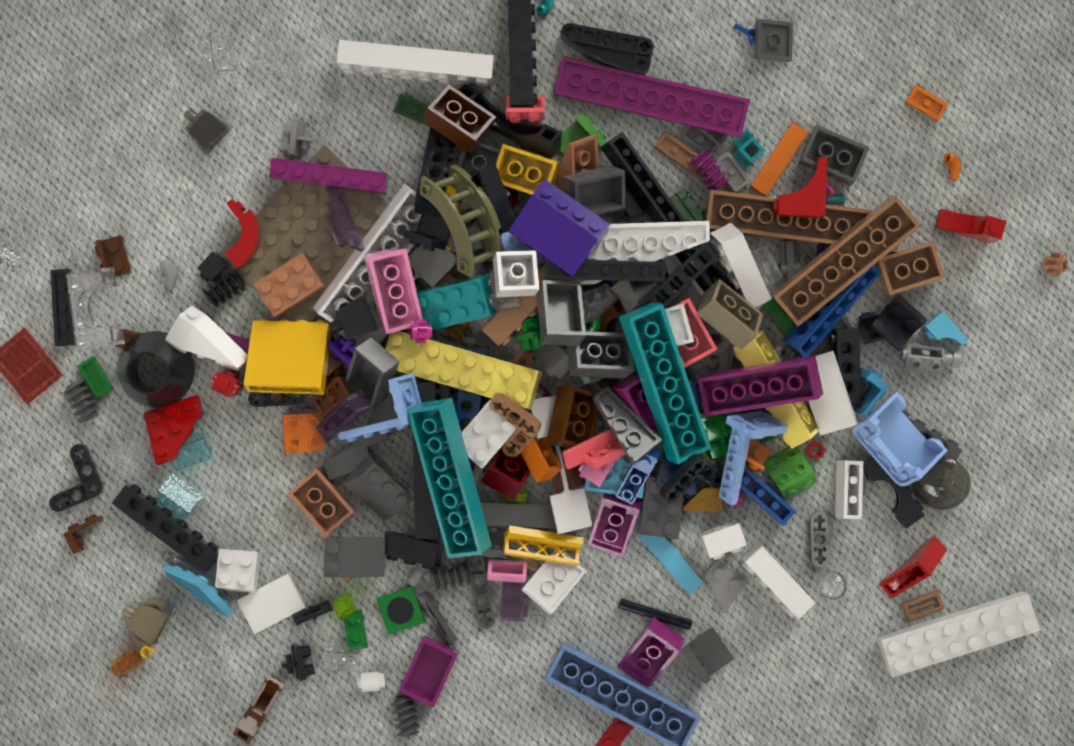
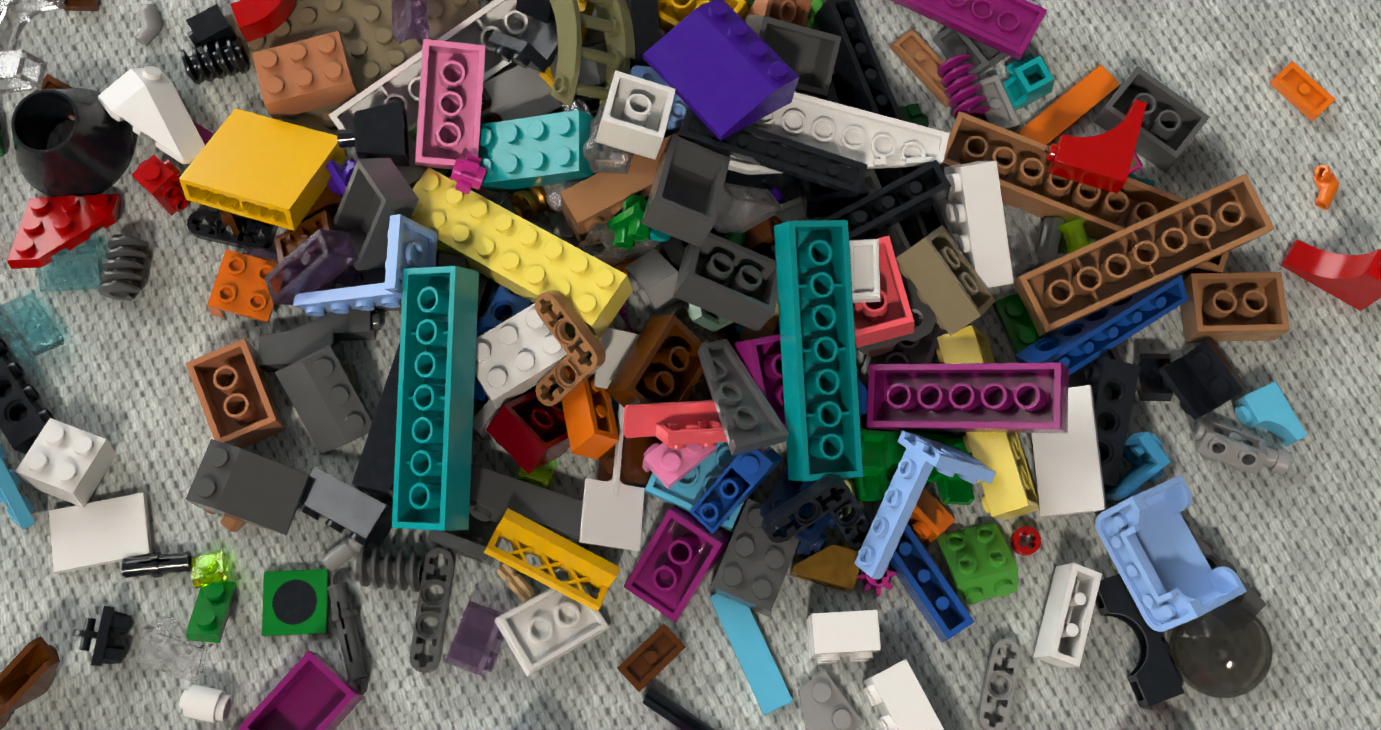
camera: 15 degrees right, 15 degrees down
(221, 441) = (121, 267): none -> dark grey piece
(507, 571) = (482, 585): bright pink brick -> none
(616, 581) = (651, 657): none -> reddish brown plate
(802, 253) = (1074, 234): none -> clear neon green bush

